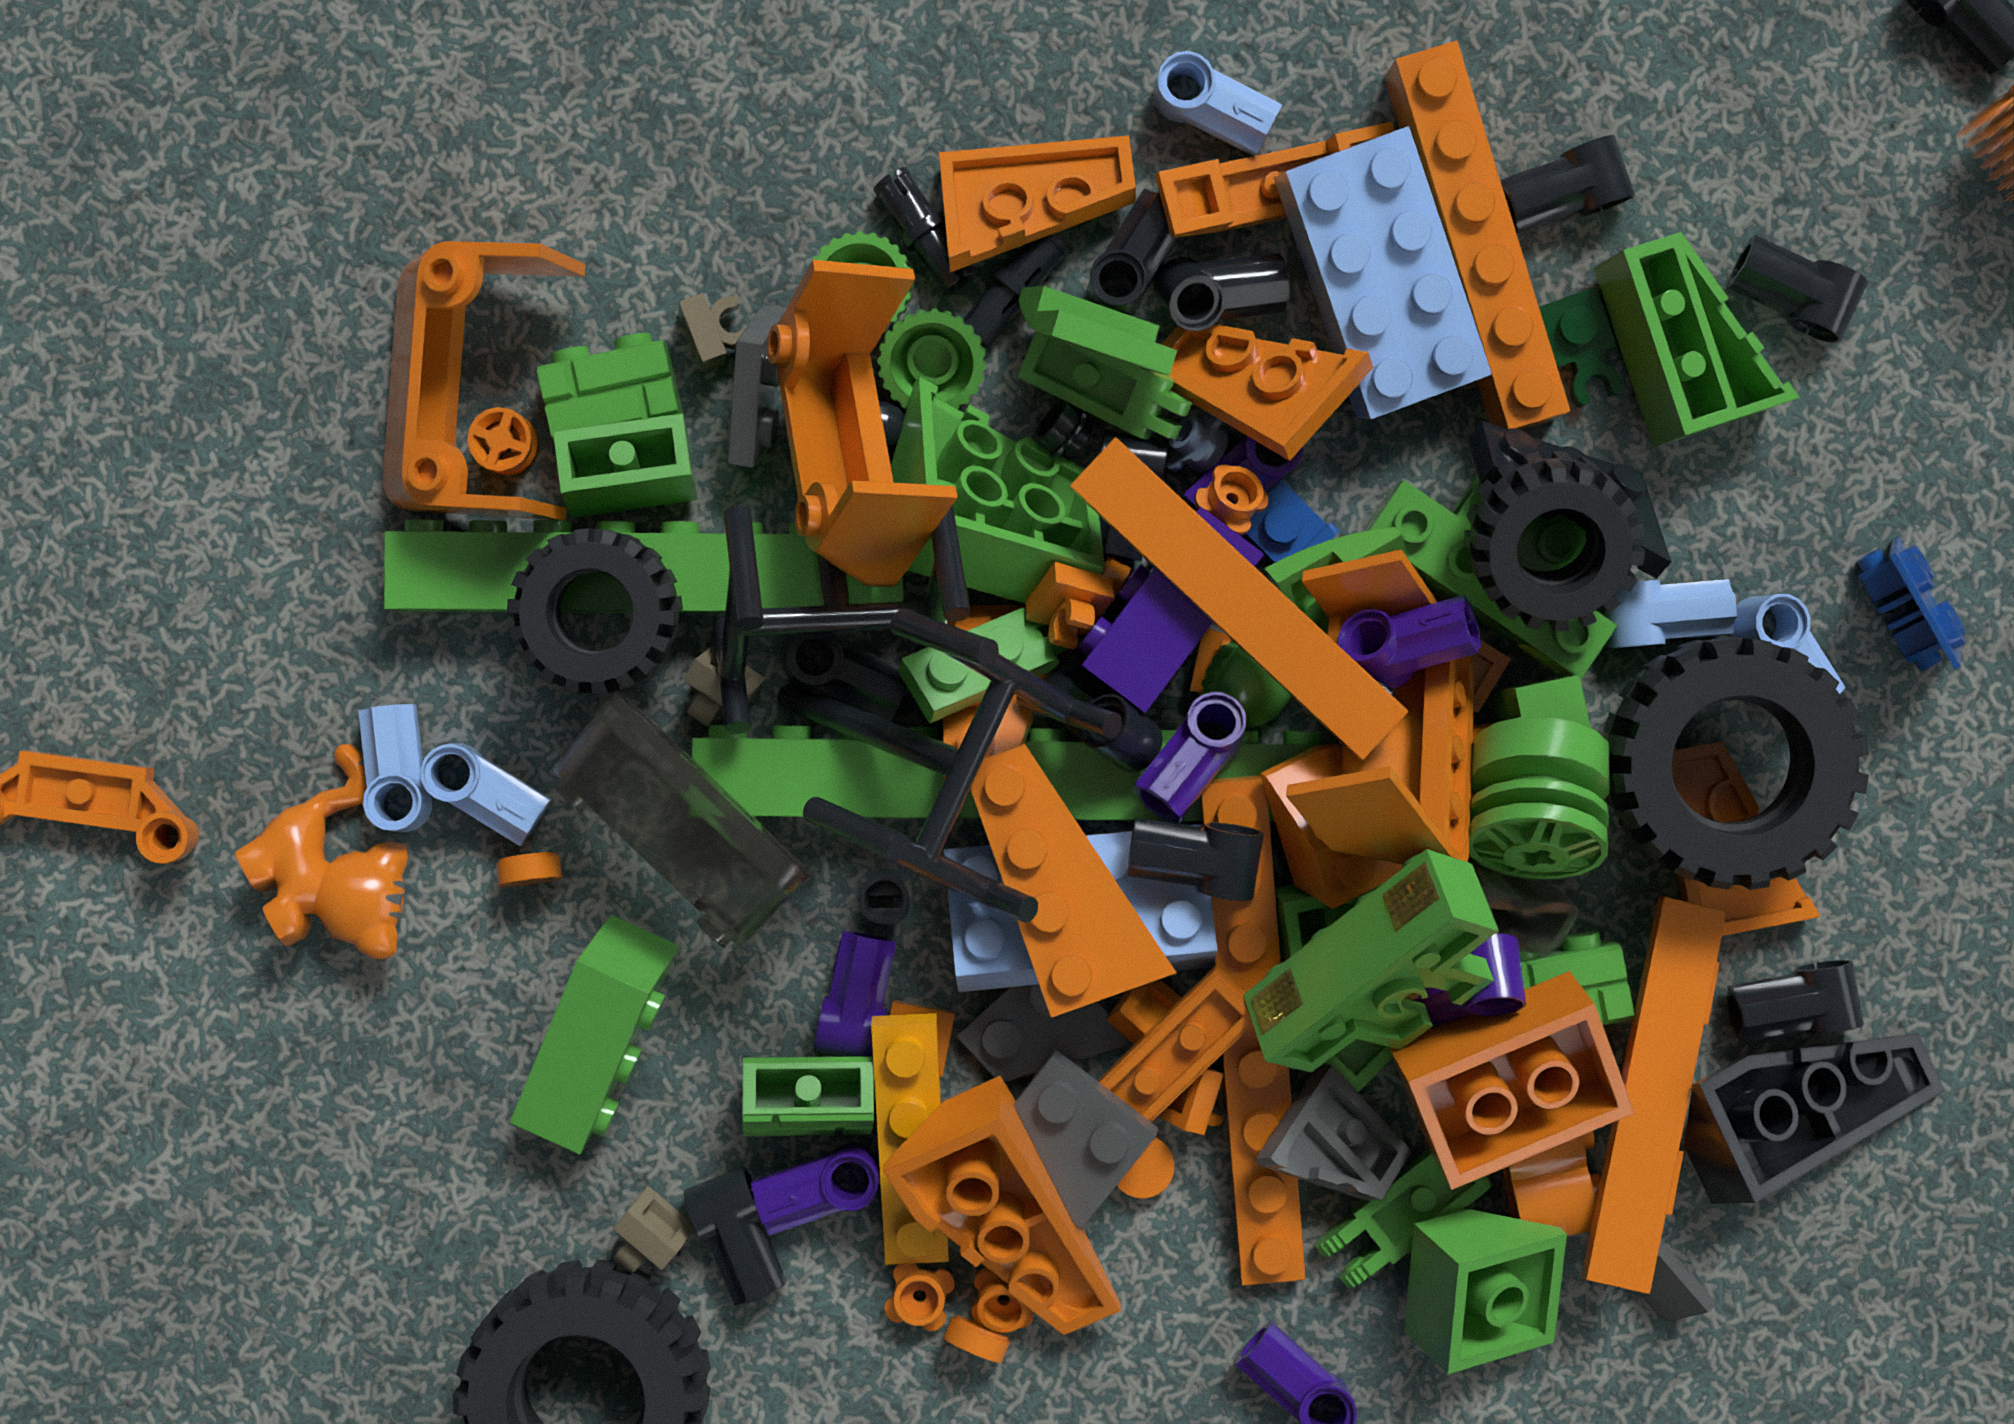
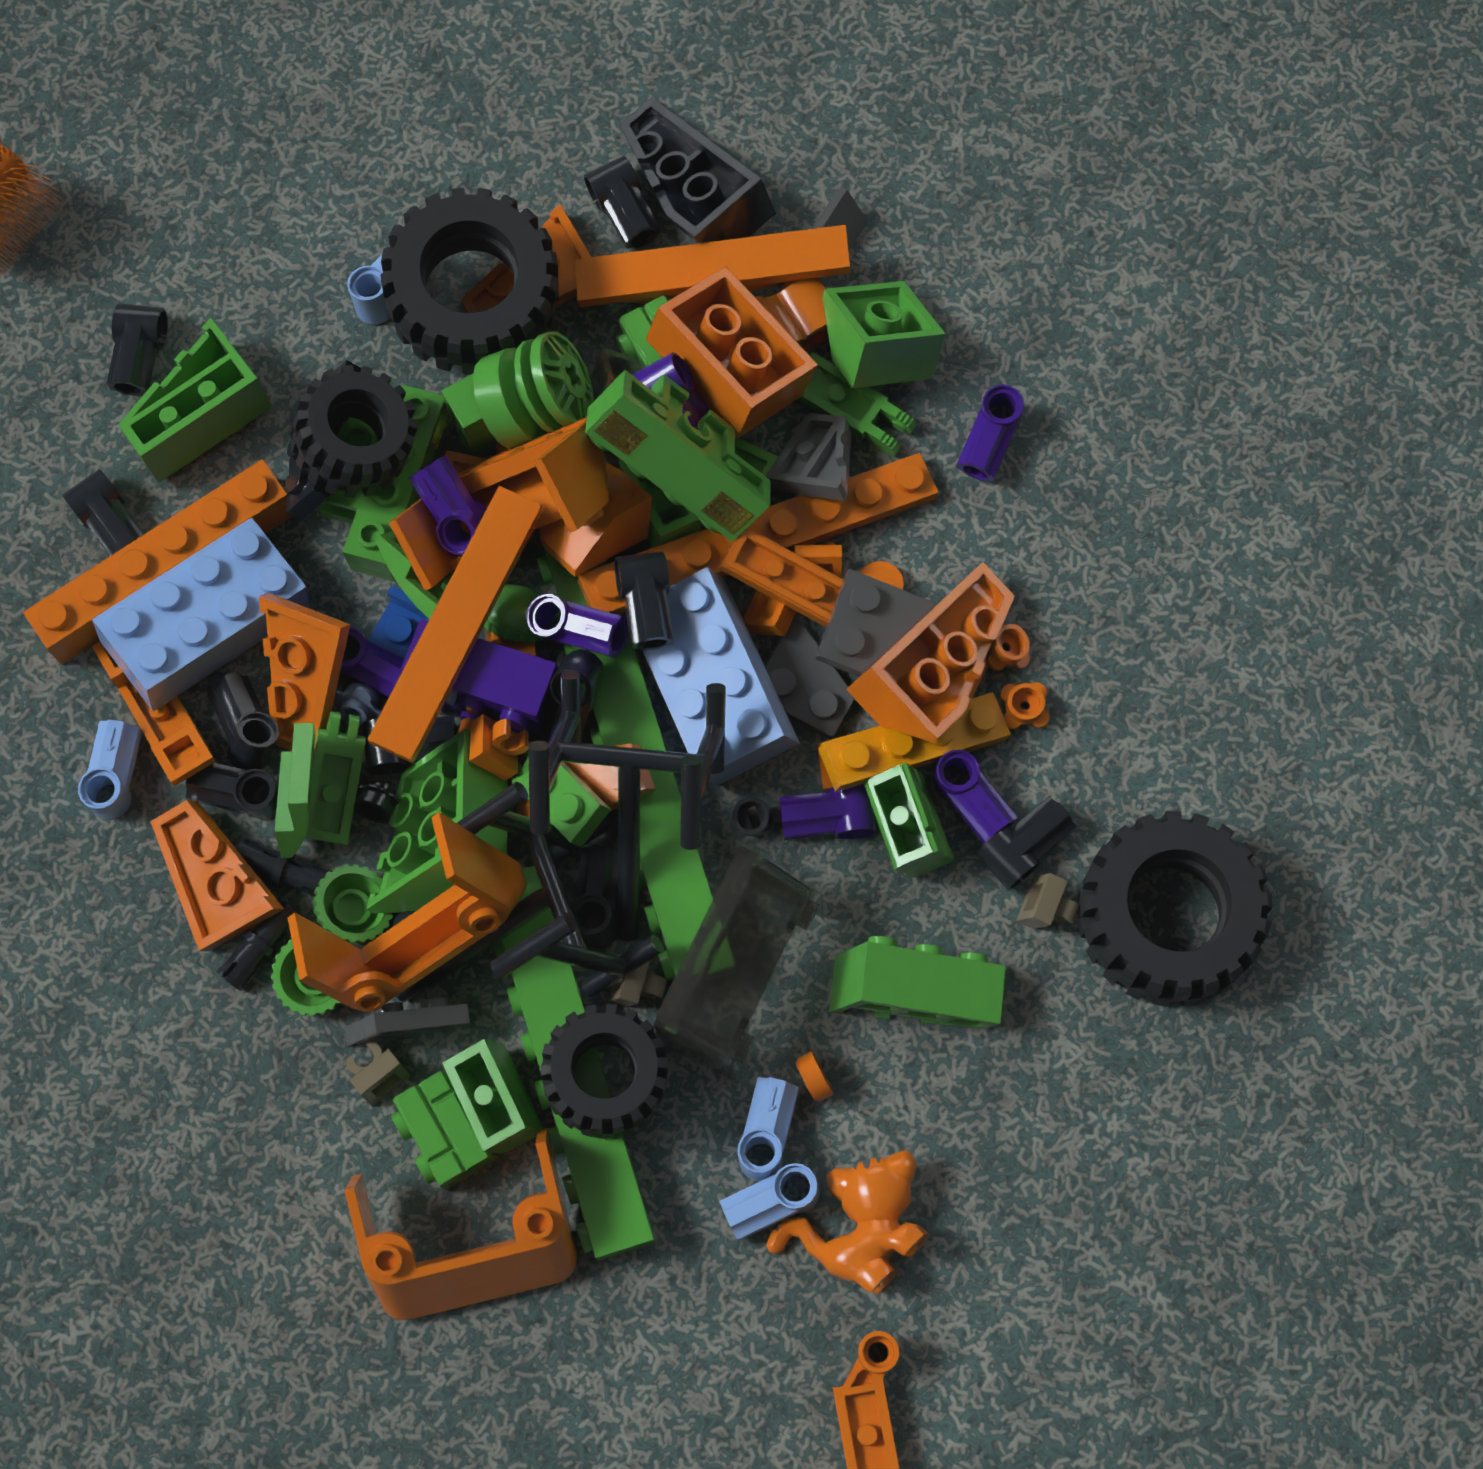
camera: 105 degrees left, 15 degrees down
(491, 436) = (495, 1190): orange wheel -> none
(976, 1339) = (1039, 655): orange tile -> none
(1085, 932) = (723, 648): orange wing -> none
(1242, 488) = (385, 659): orange plate -> none
(1577, 336) = (208, 473): dark green plate -> none
(1671, 611) = (380, 350): light blue piece -> none
(1941, 624) = (339, 189): blue hinge -> none

